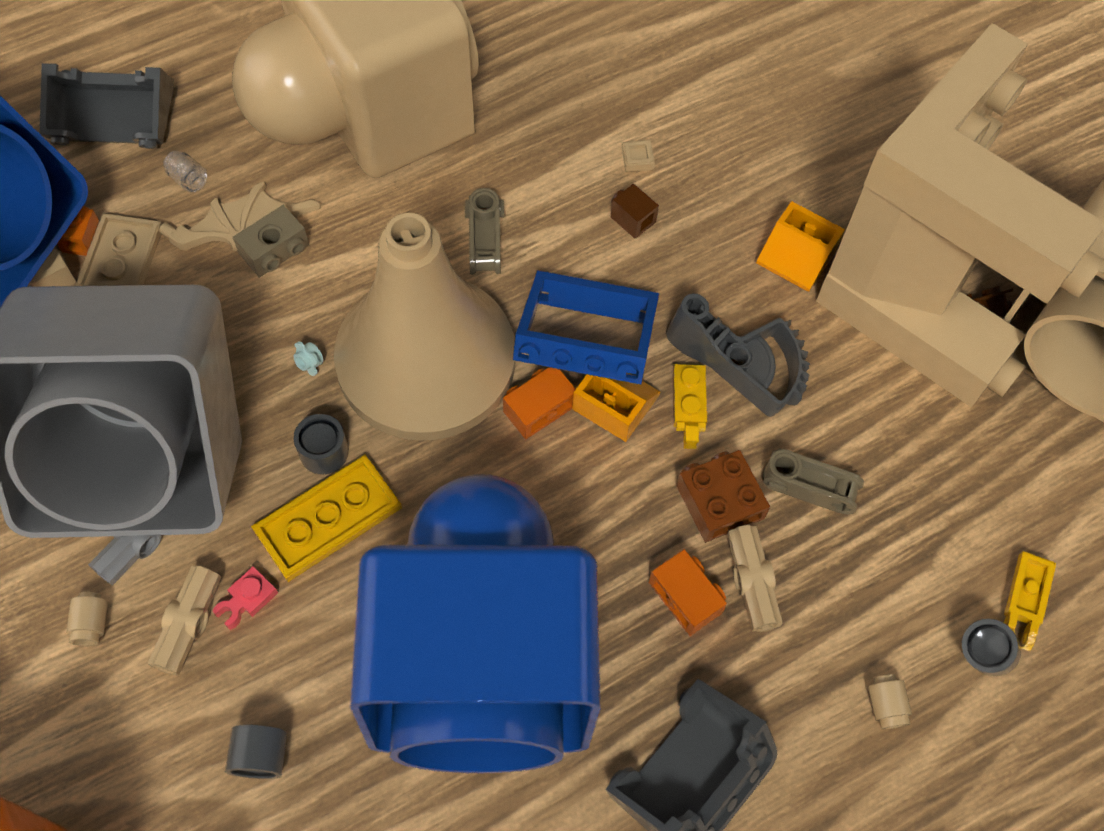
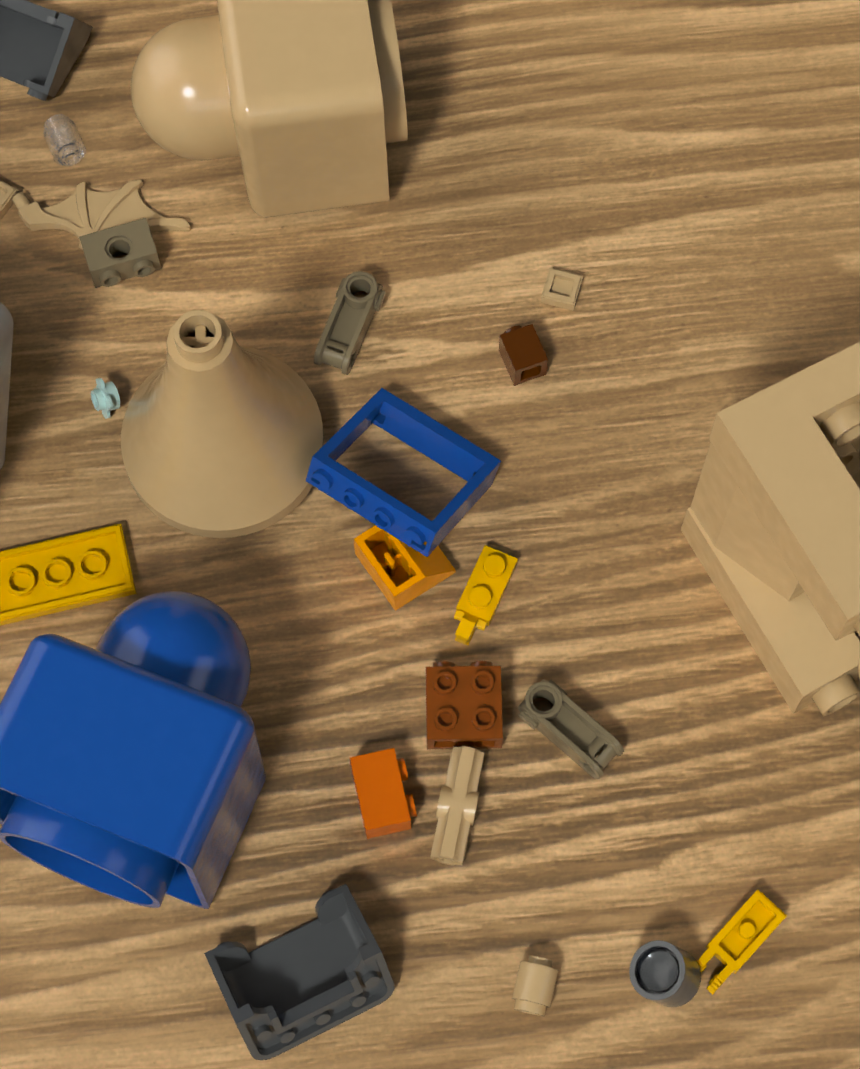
camera: 25 degrees right, 5 degrees up
(321, 444) = (80, 496): dark grey piece -> none
(538, 401) = (320, 533): orange brick -> none
(713, 344) = (535, 542): dark grey arm -> none
(800, 246) = (675, 460): light orange slope -> none

